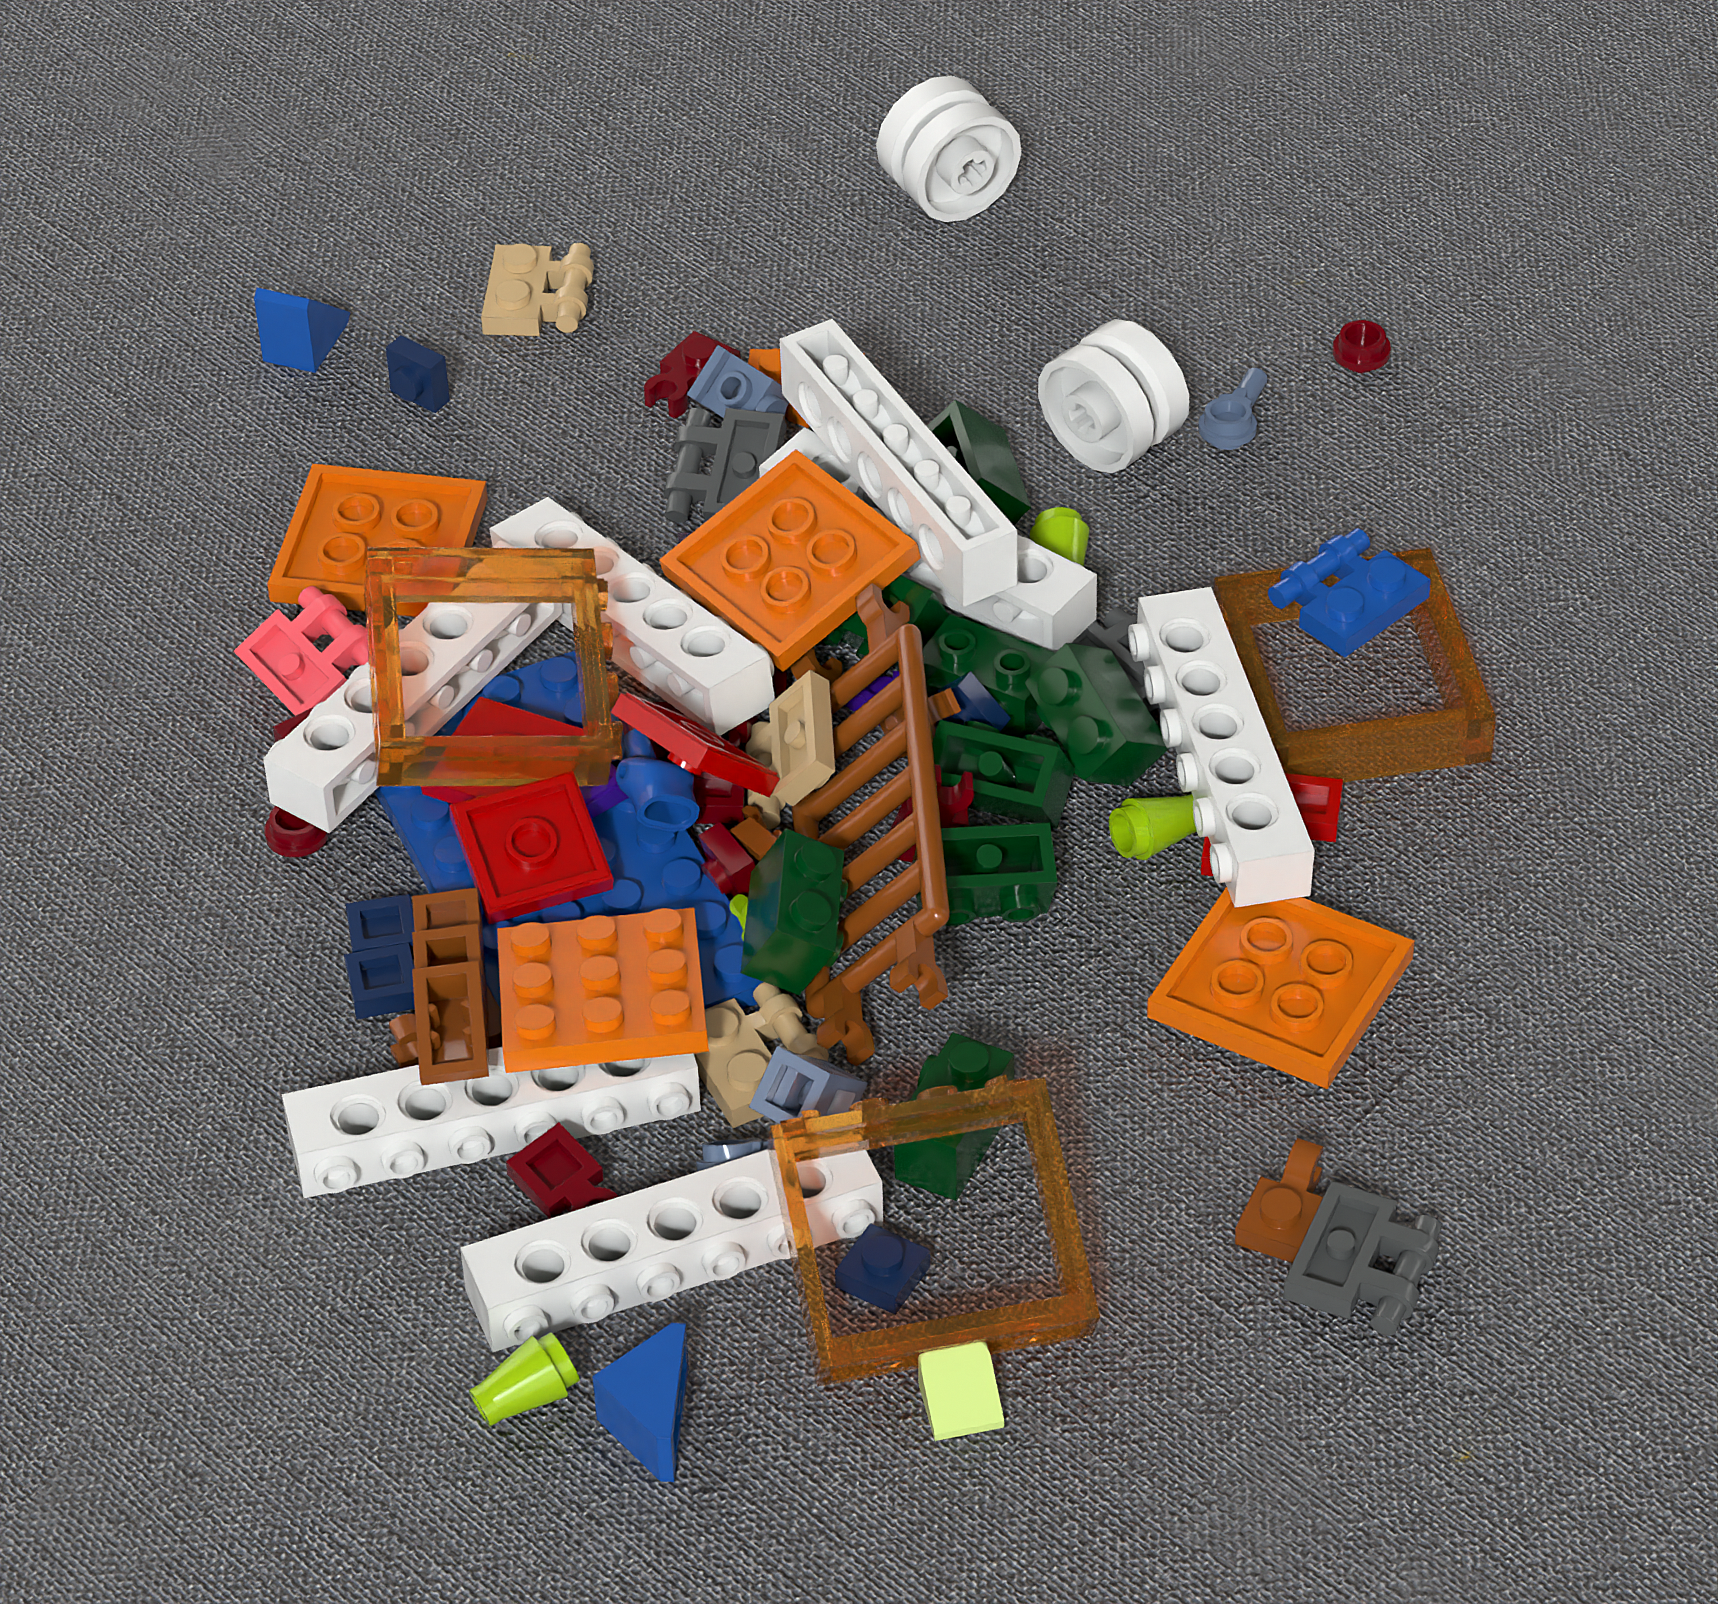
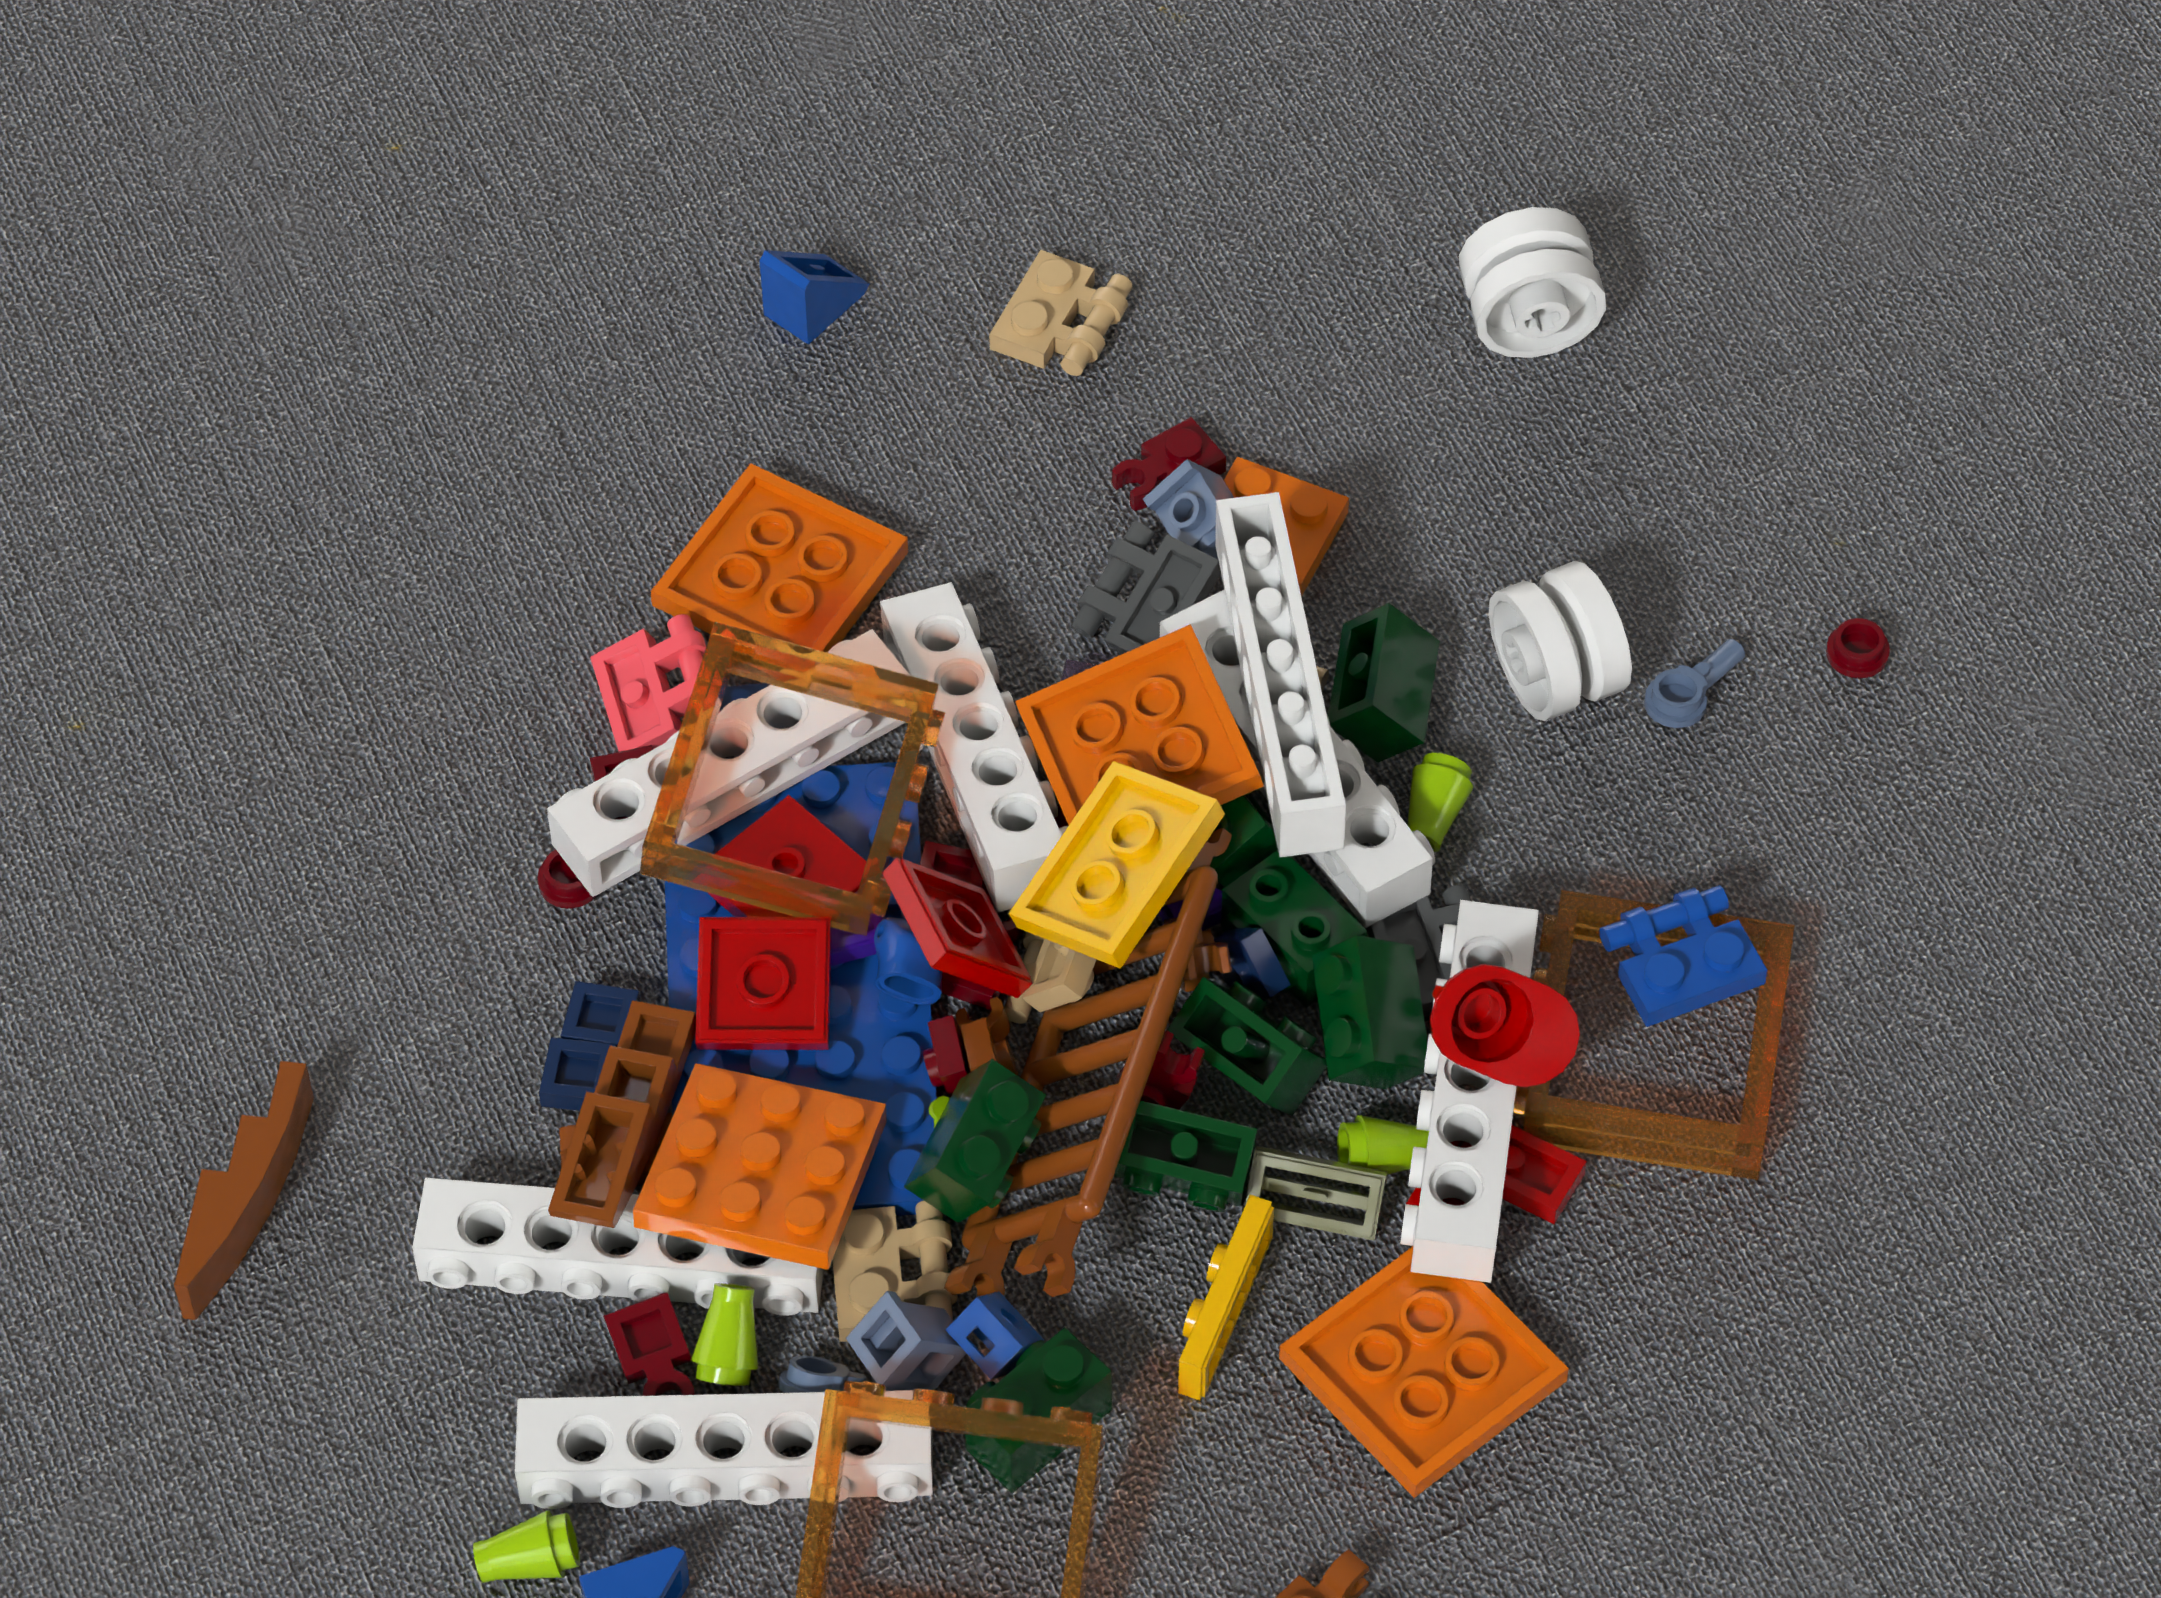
camera: 20 degrees right, 10 degrees up
(100, 1172) = (237, 1203): none -> dark orange slope
(417, 374) = (895, 386): dark blue plate -> none
(634, 1143) = (728, 1337): none -> lime cone
(824, 645) = (1116, 864): none -> yellow plate
(872, 1046) = (999, 1328): none -> blue piece
(882, 1268) = (907, 1544): dark blue plate -> none
(1075, 998) = (1232, 1276): none -> yellow plate
(1170, 869) = (1322, 1168): none -> olive tile
(1236, 666) = (1504, 1025): none -> red piece

